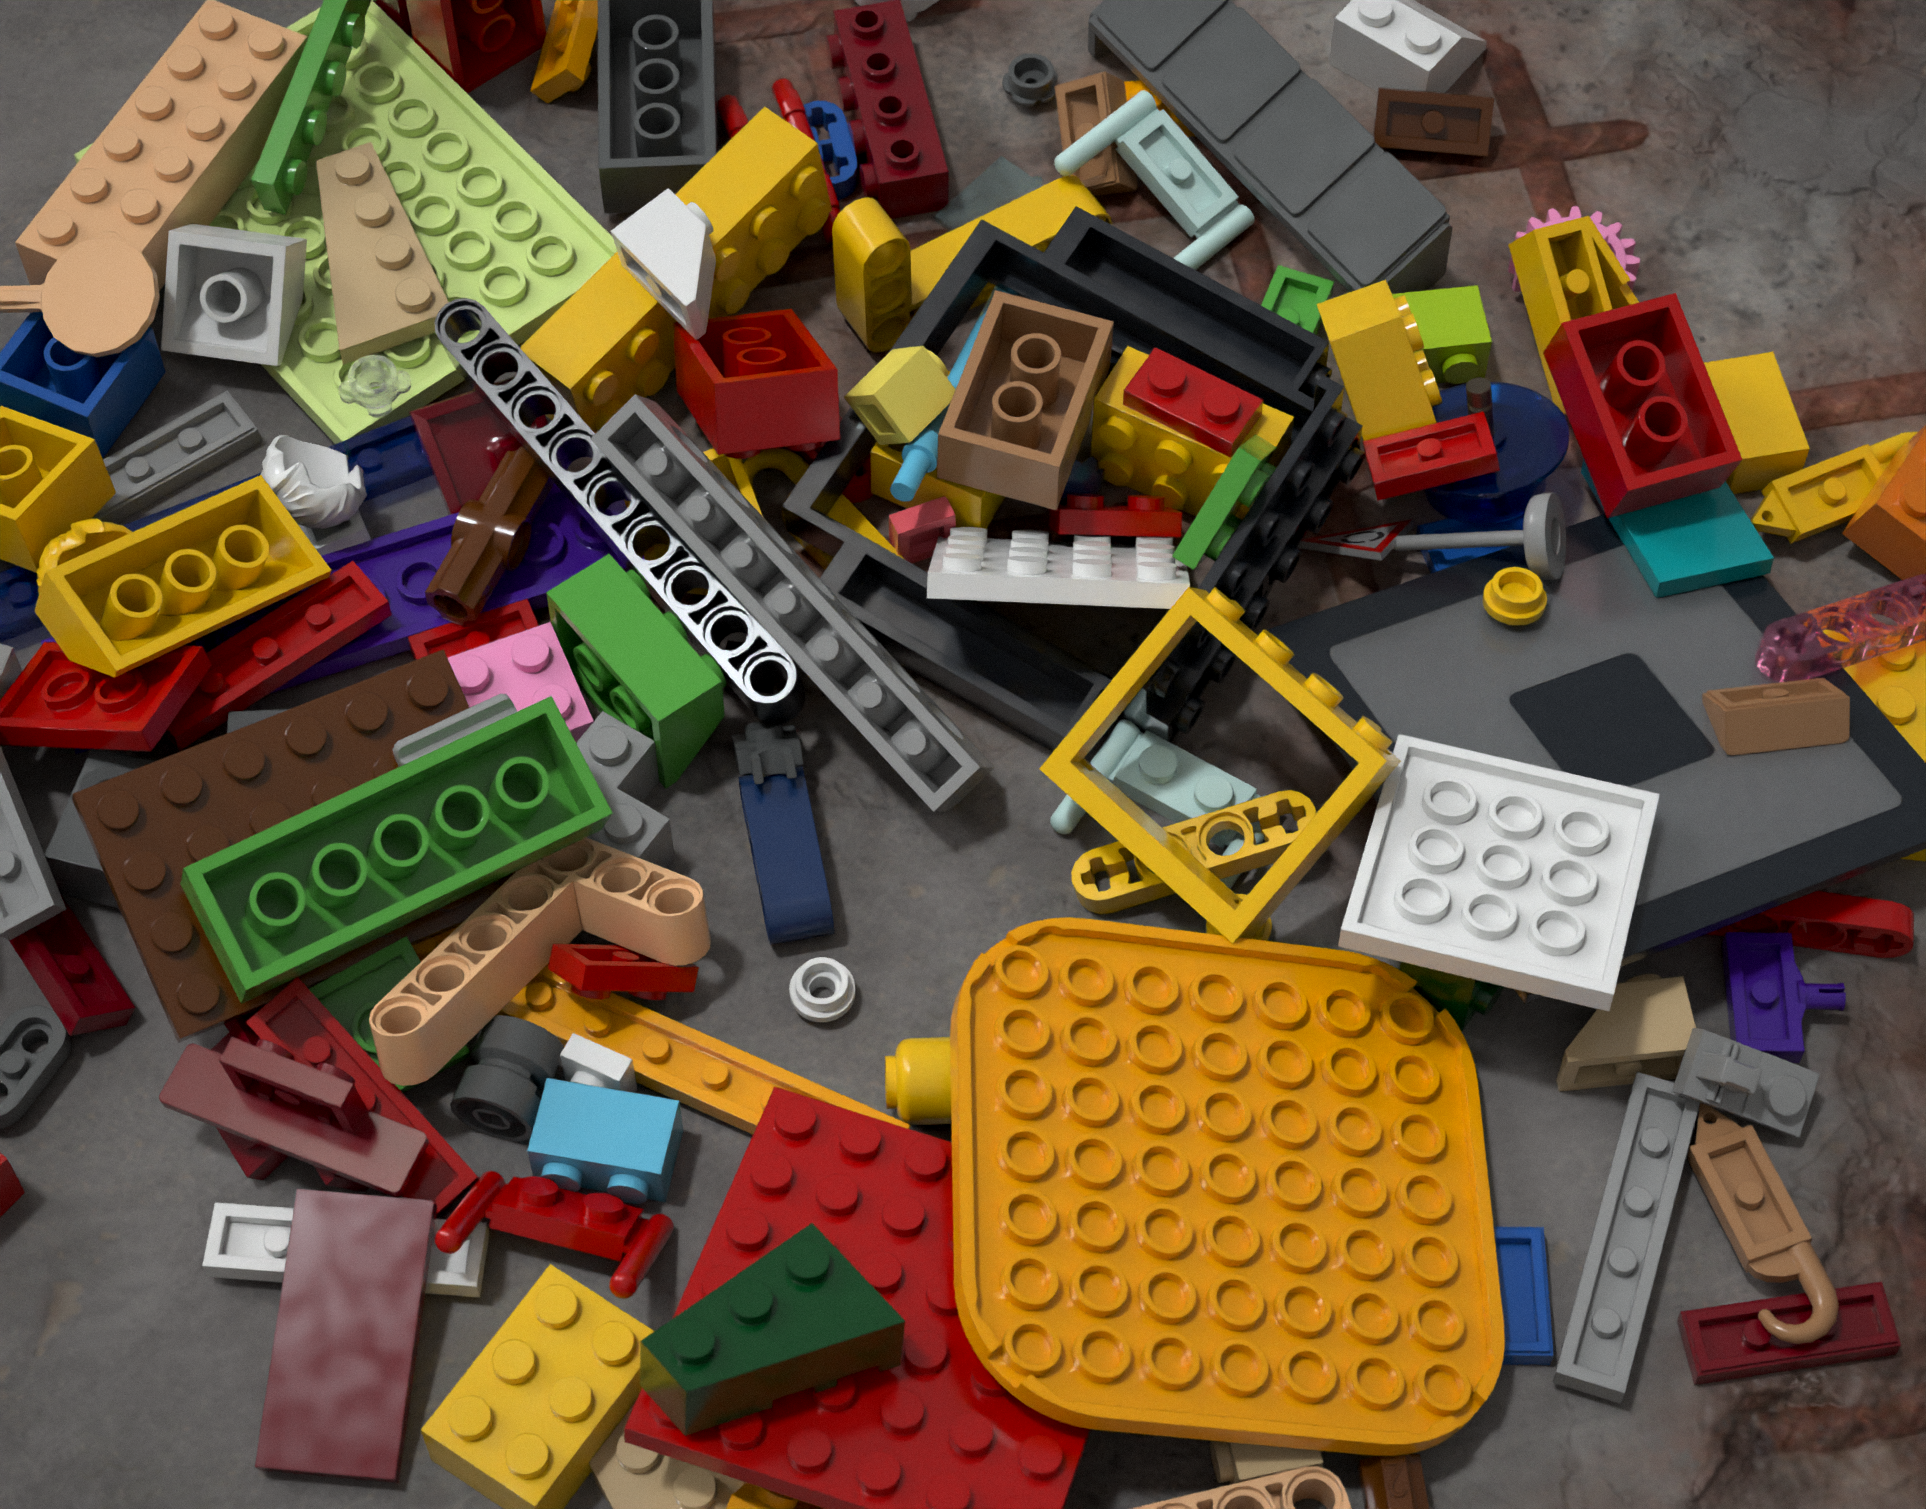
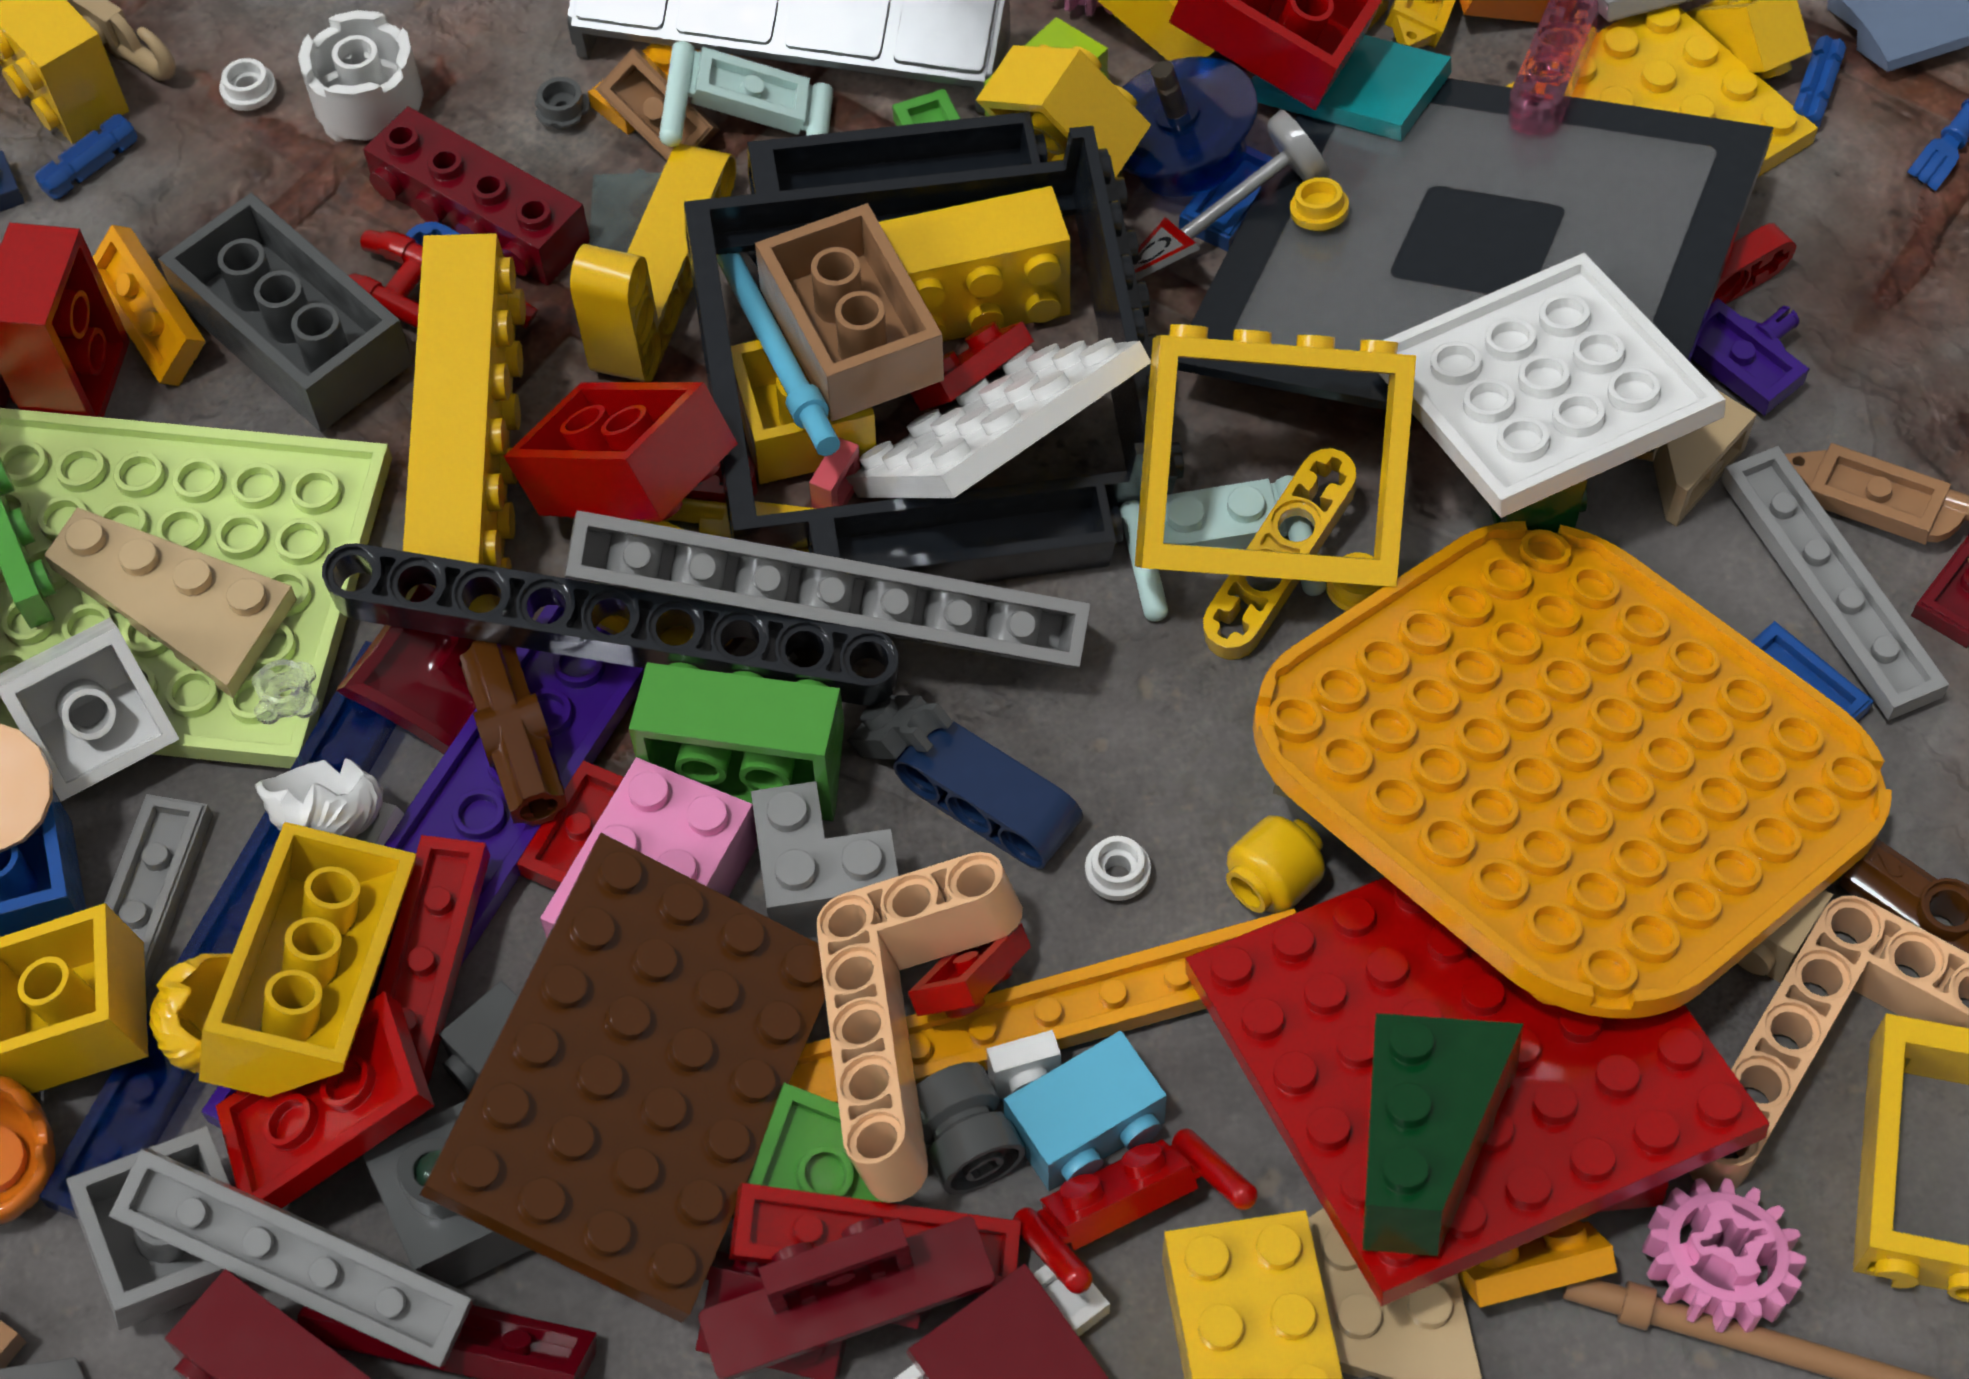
camera: 40 degrees left, 0 degrees up
(394, 849) = (734, 1018): bright green brick -> none
(452, 728) = (682, 889): light grey axle -> none
(671, 257) = (475, 399): white slope -> none
(902, 394) = (756, 374): light yellow brick -> none
(1192, 402) = (974, 225): red plate -> none
(1238, 485) = (1079, 274): bright green plate -> none
(1431, 455) = (1169, 146): red plate -> none
(1746, 1082) = (1801, 416): light grey hinge -> none
(1778, 716) = (1576, 152): medium nougat slope -> none

